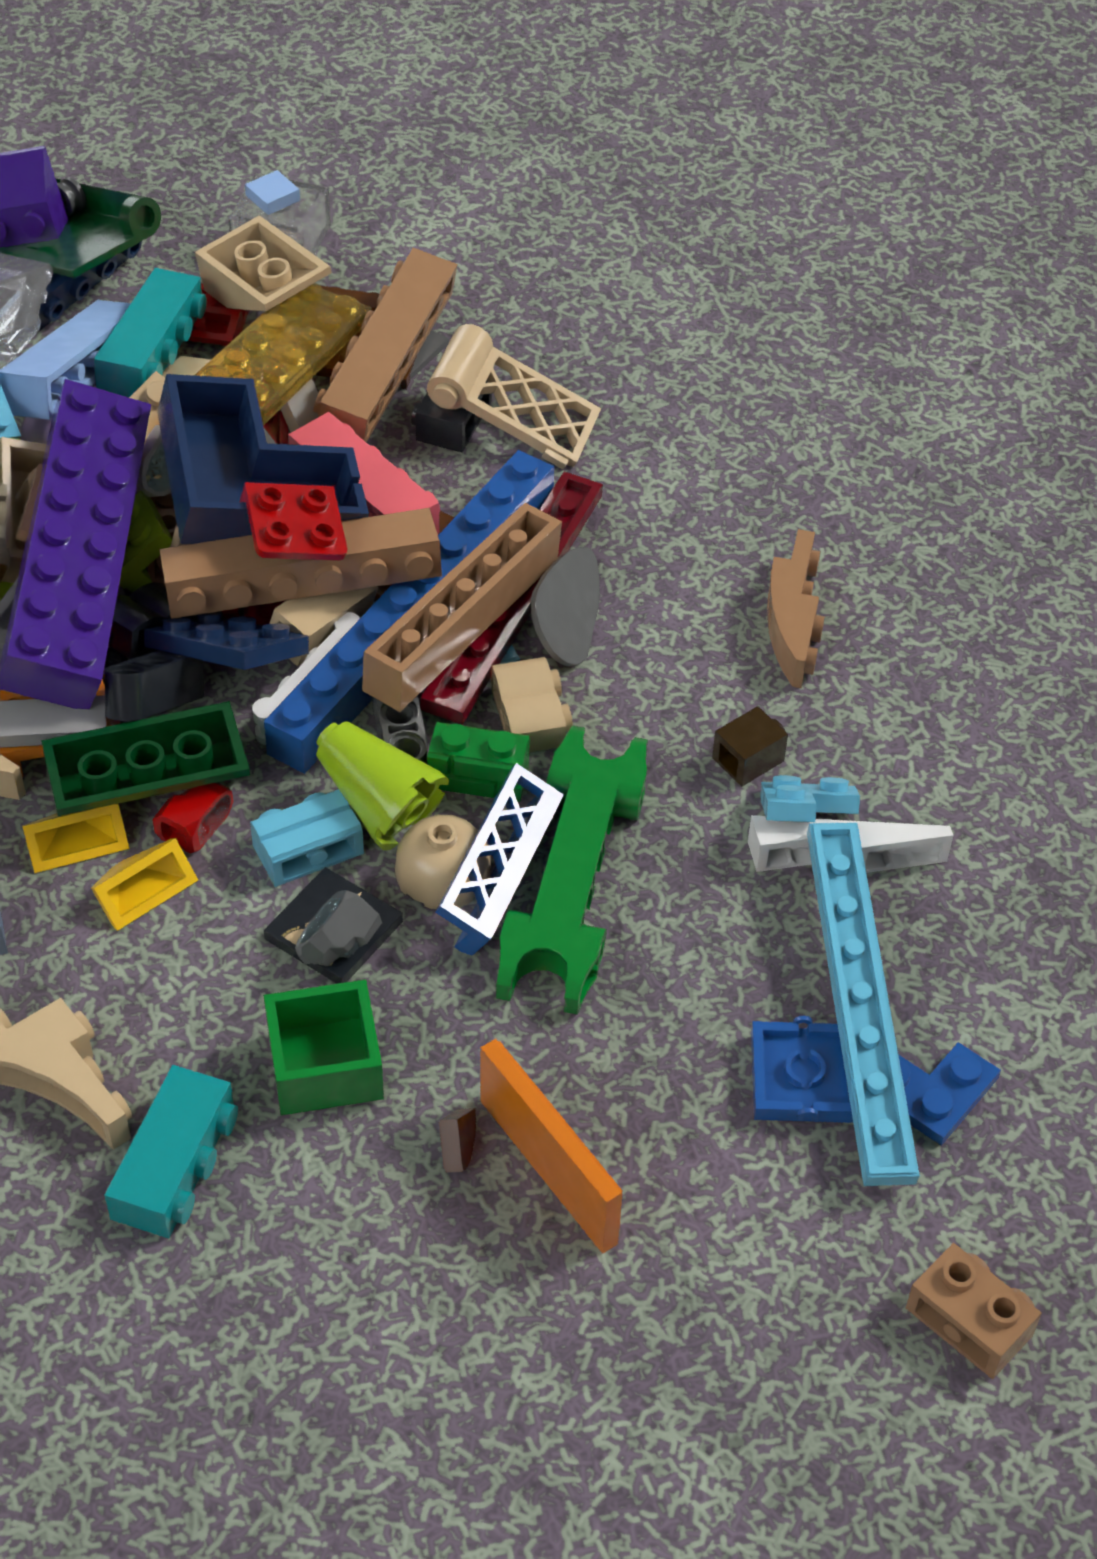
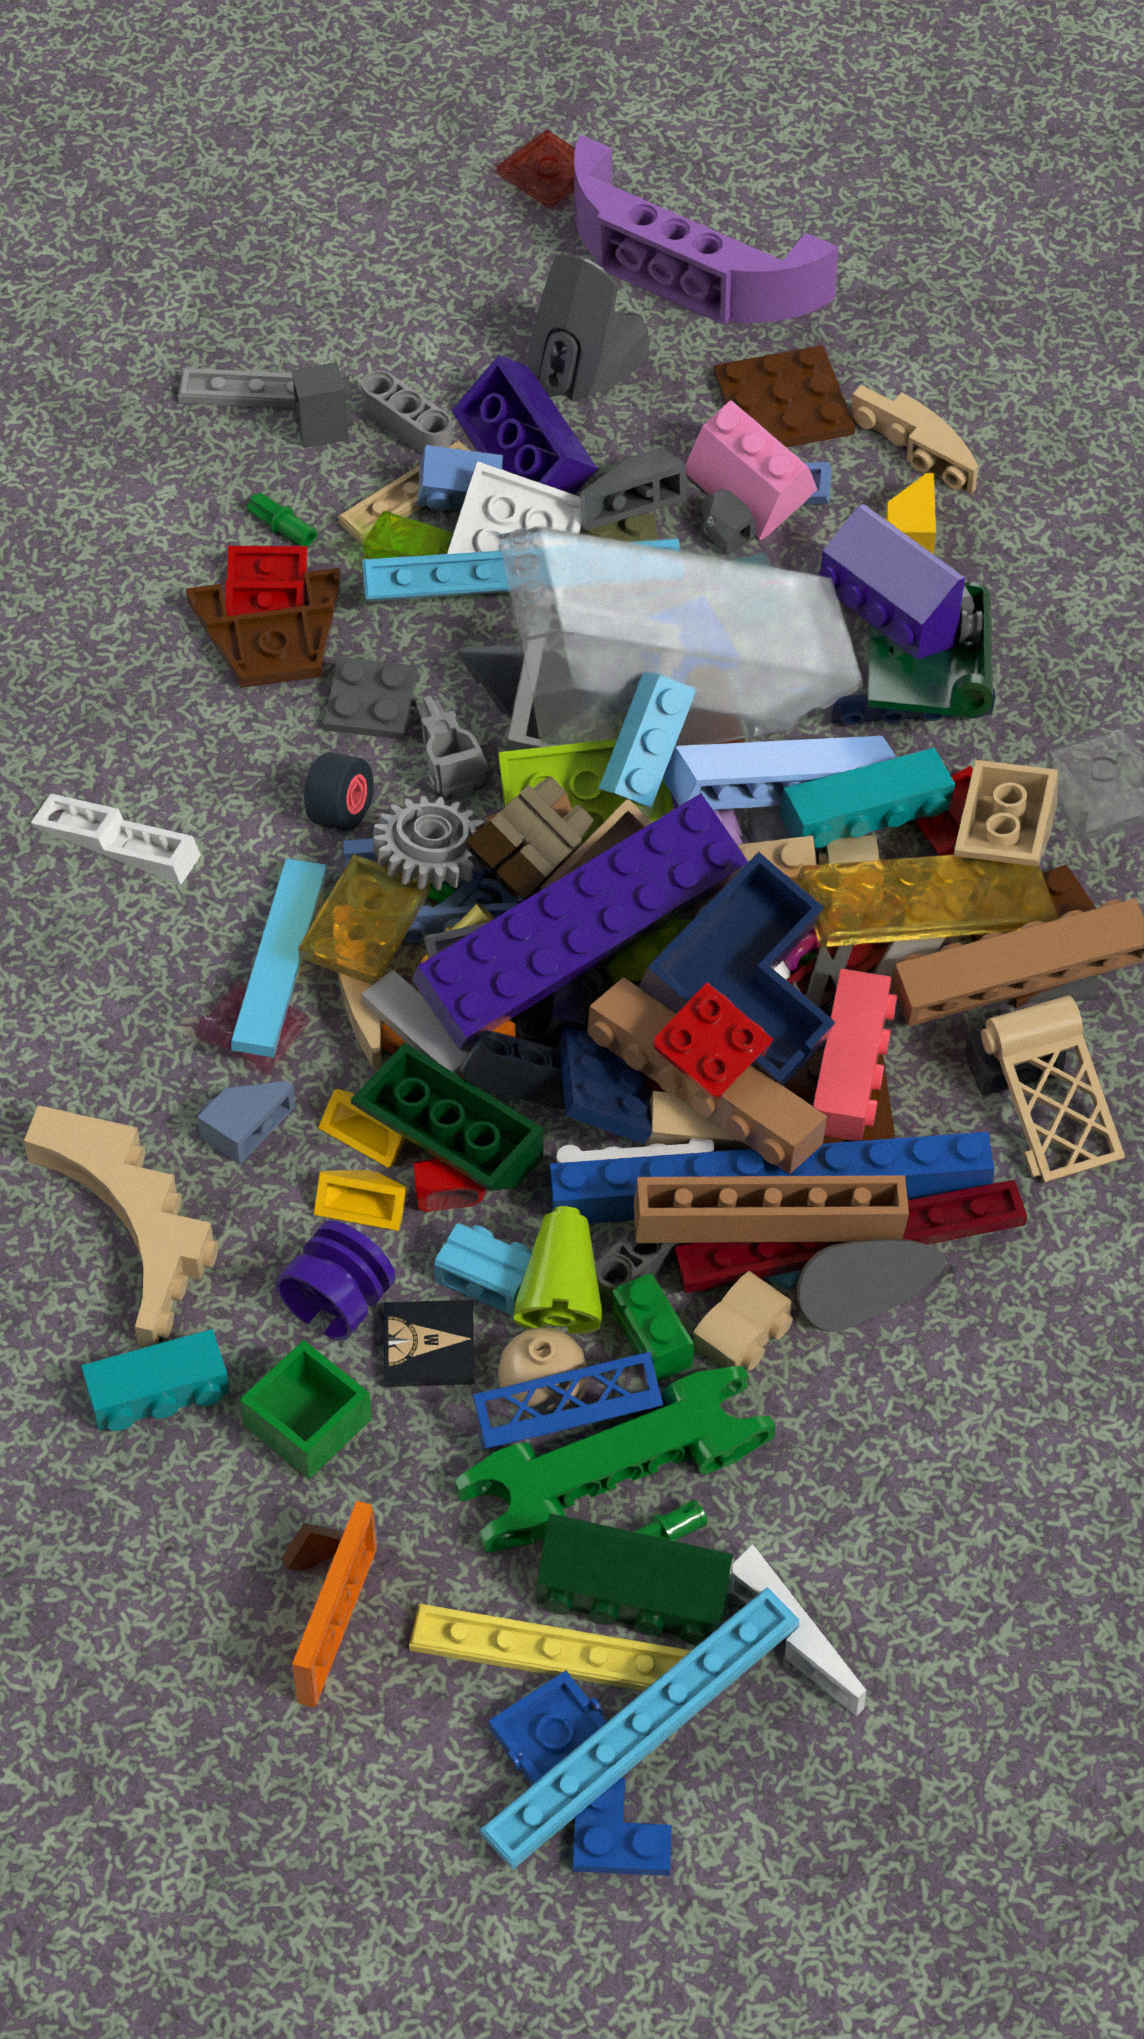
camera: 55 degrees right, 5 degrees up
(218, 935) = (338, 1274): none -> dark purple wheel
(272, 192) = (1104, 757): light blue tile -> none
(337, 929) = (409, 1346): dark grey rock -> none
(672, 876) = (676, 1523): none -> green axle
(710, 1029) = (541, 1648): none -> light yellow tile
(713, 915) = (633, 1579): none -> dark green slope
(750, 745) = (839, 1502): dark brown brick -> none
(792, 801) = (810, 1563): medium azure plate -> none
(793, 610) = (1007, 1443): medium nougat slope -> none
(973, 1309) = (431, 1971): medium nougat brick -> none

